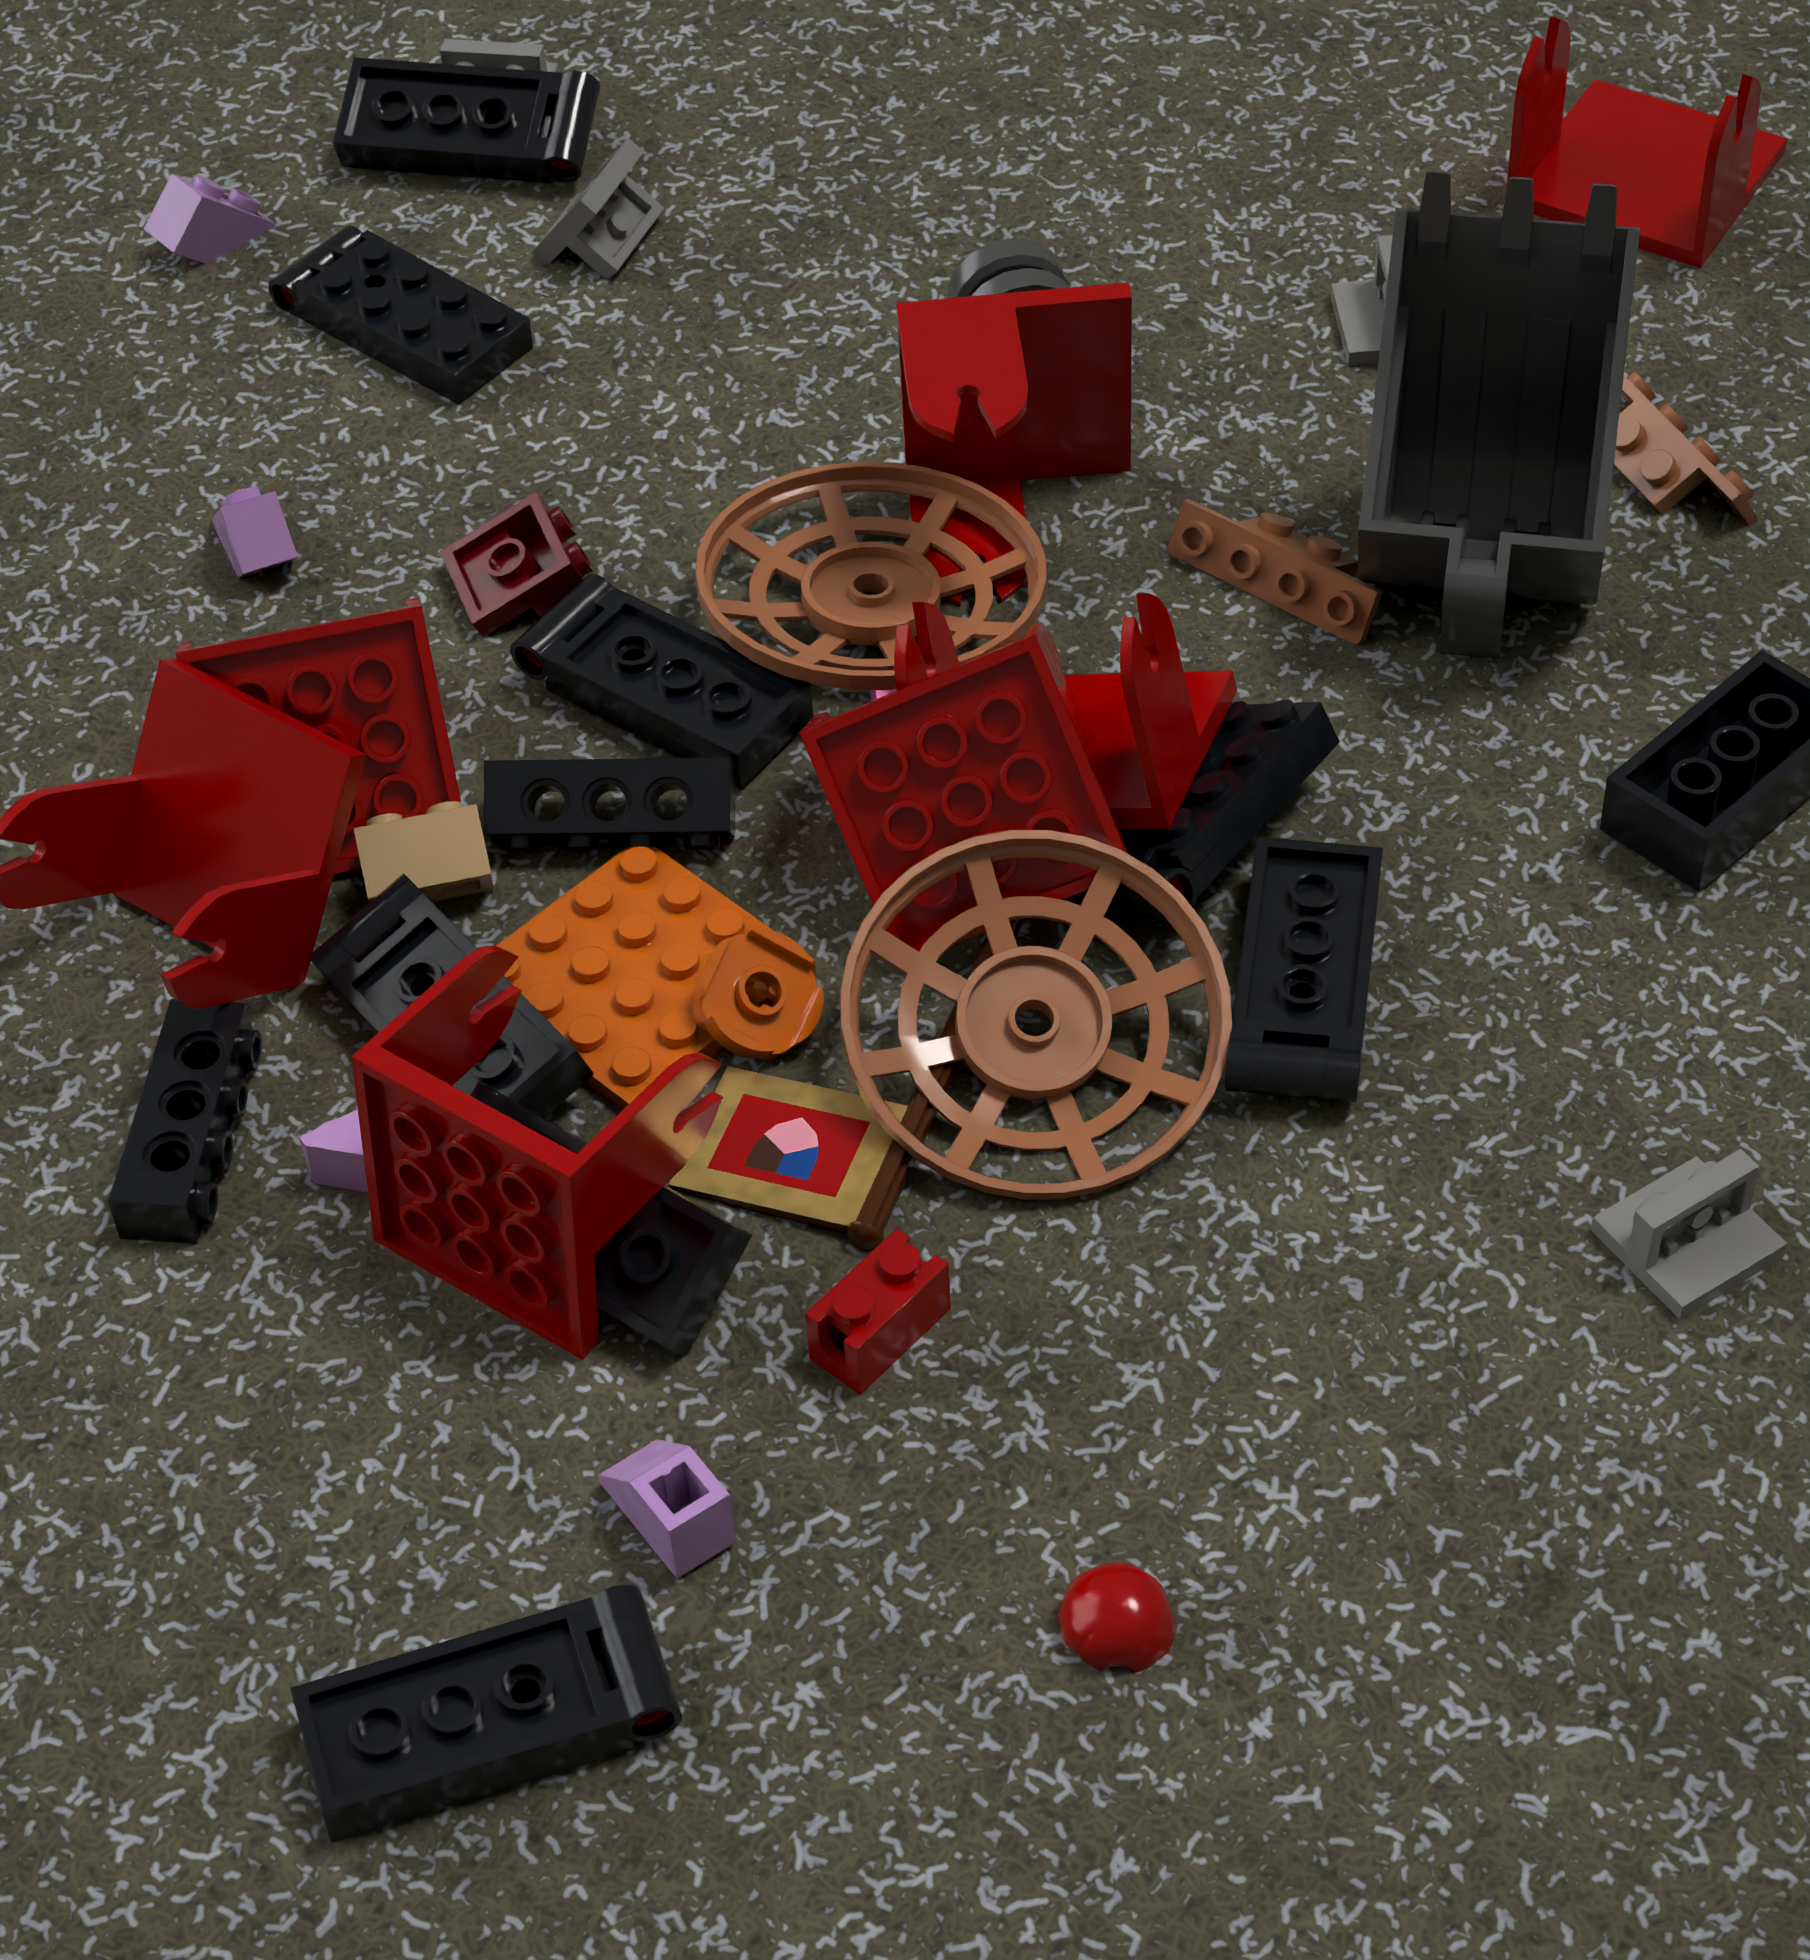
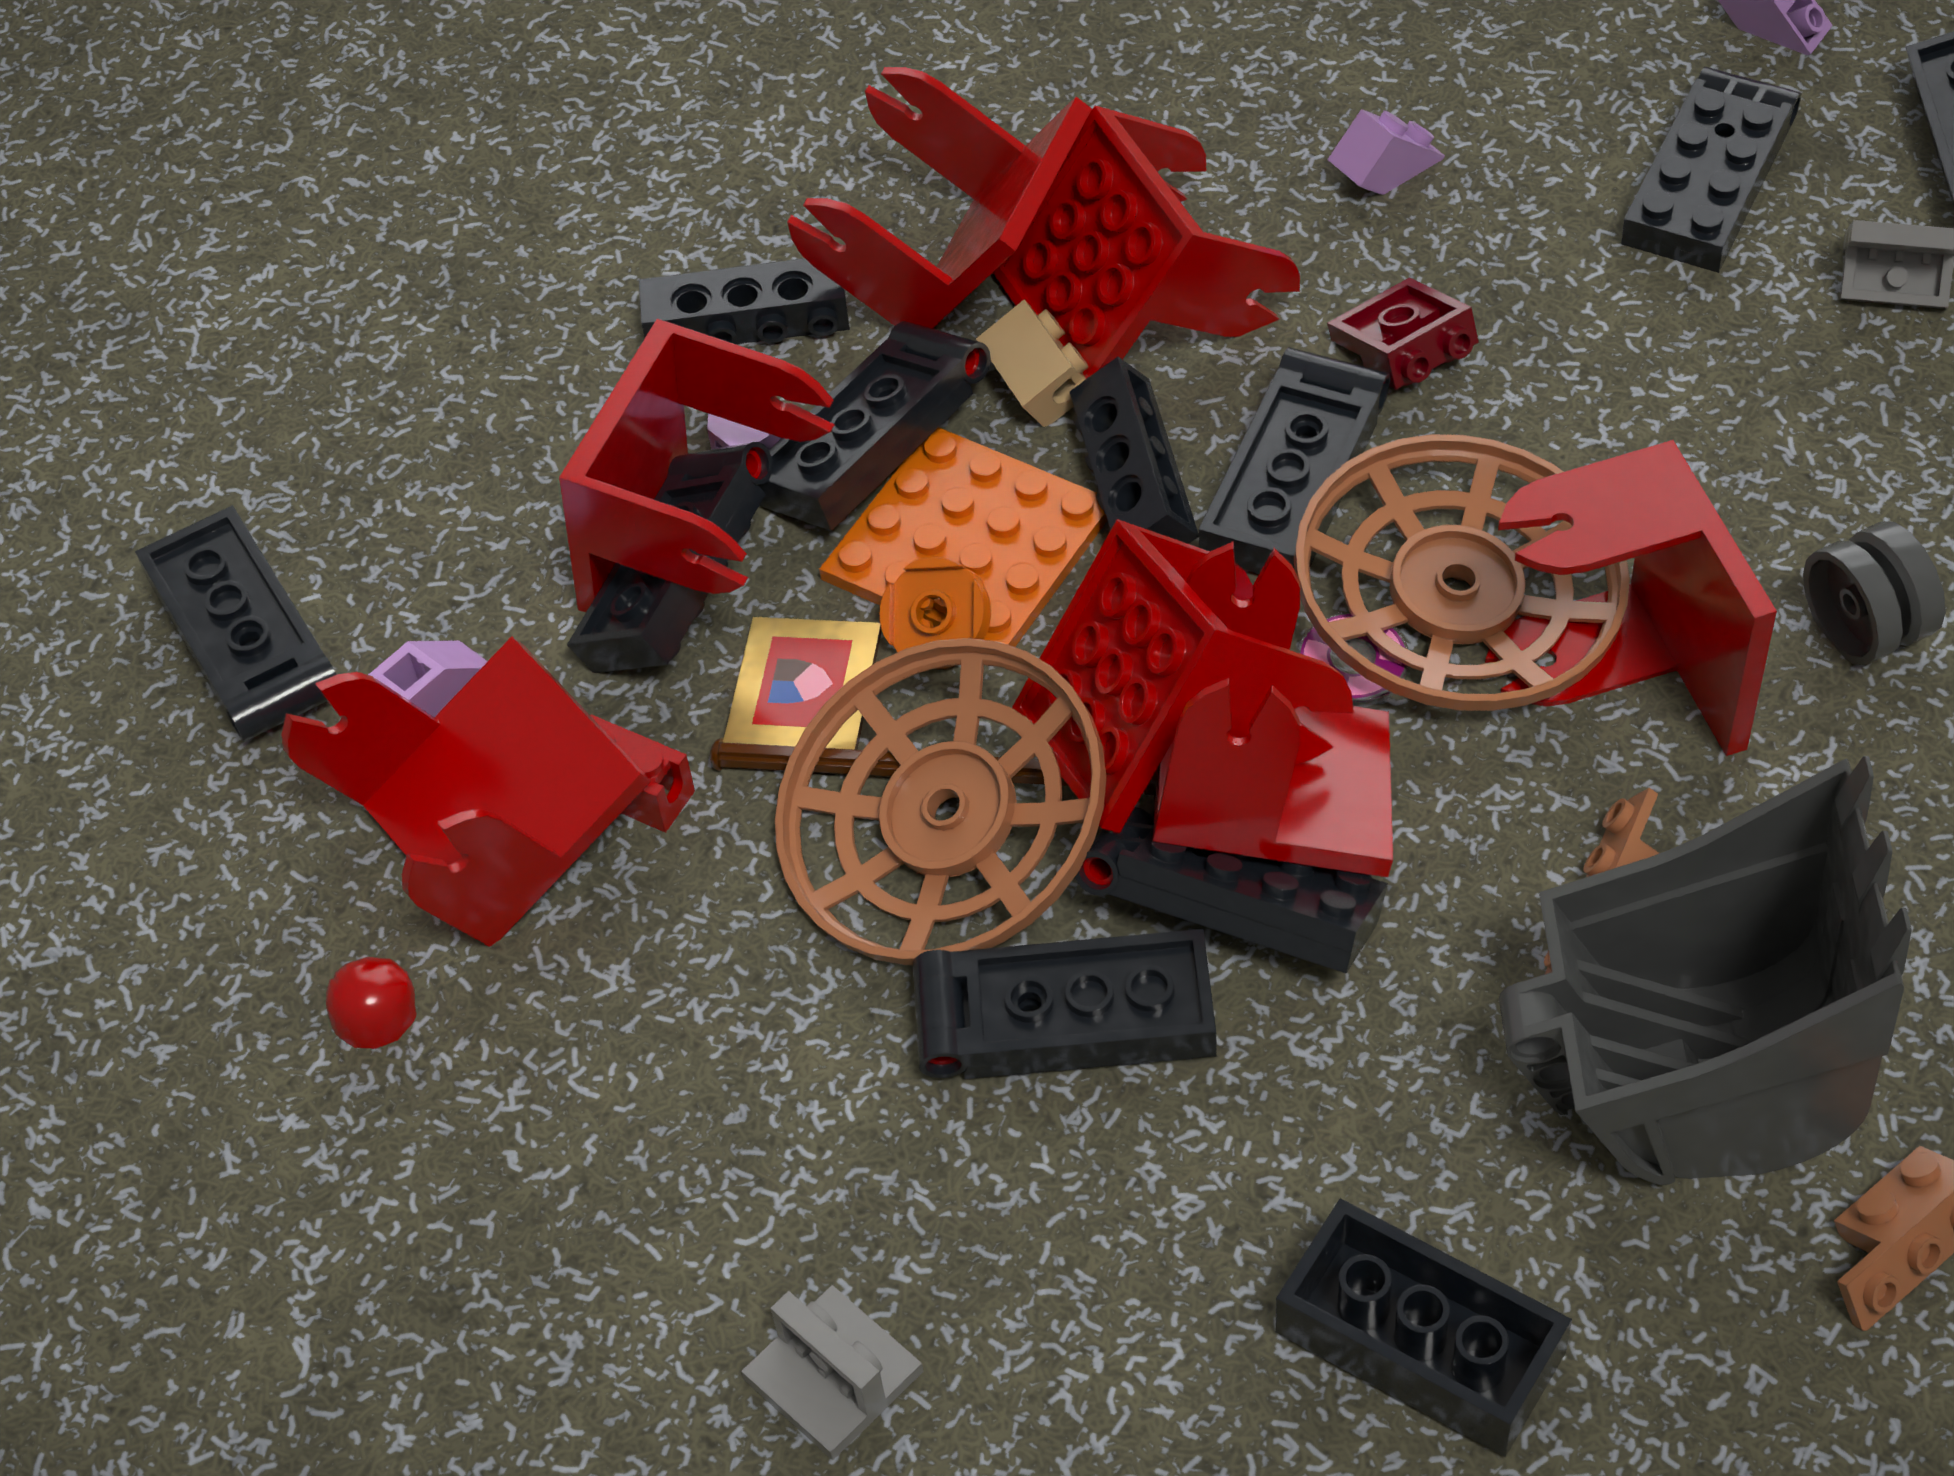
camera: 80 degrees right, 5 degrees up
(890, 1424) = (481, 795): none -> red piece

